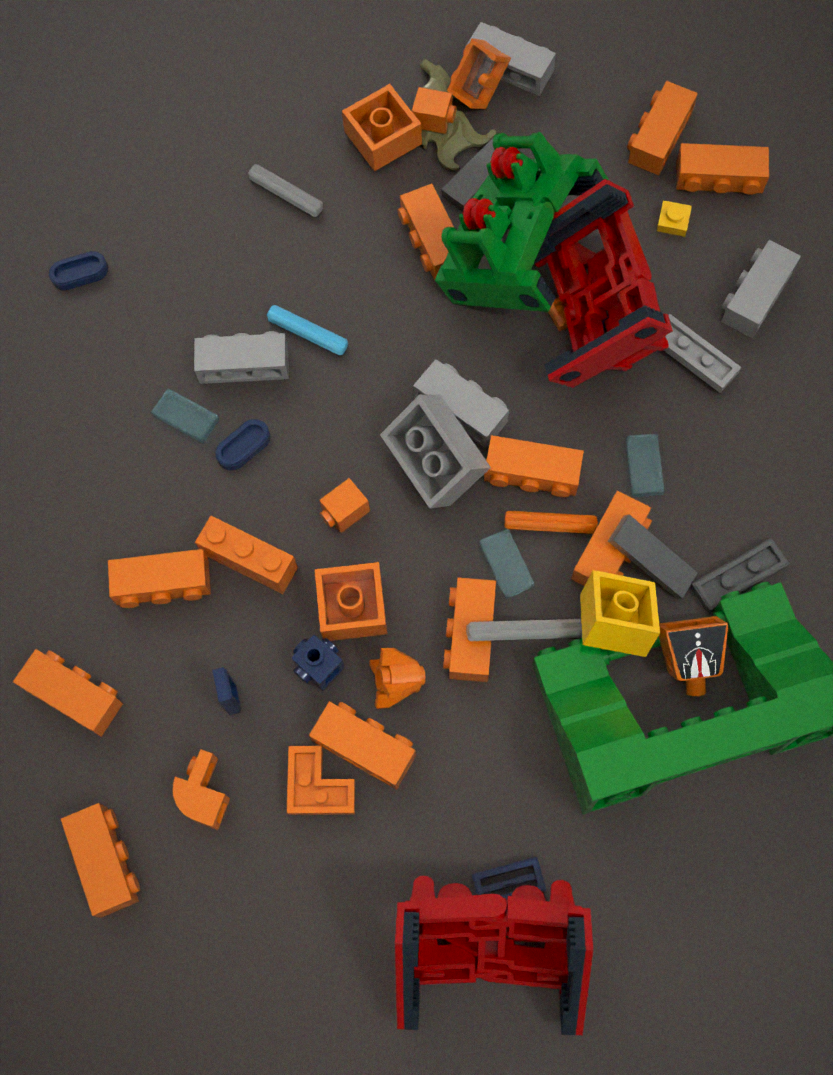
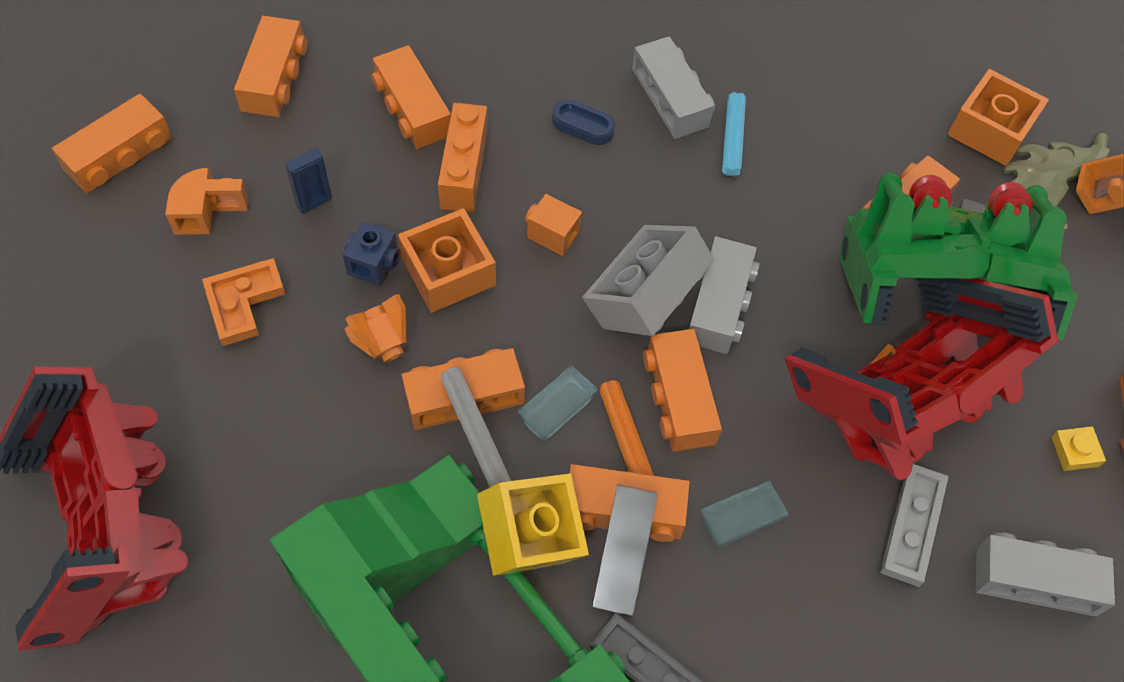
camera: 60 degrees right, 10 degrees down
(185, 415) = (591, 67): clear light blue tile -> none
(285, 190) = (877, 67): light grey axle -> none
(363, 744) = (297, 326): orange brick -> none
(434, 109) = (1047, 153): orange brick -> none
(536, 875) = (203, 548): dark blue tile -> none
(694, 650) = (523, 632): torso -> none

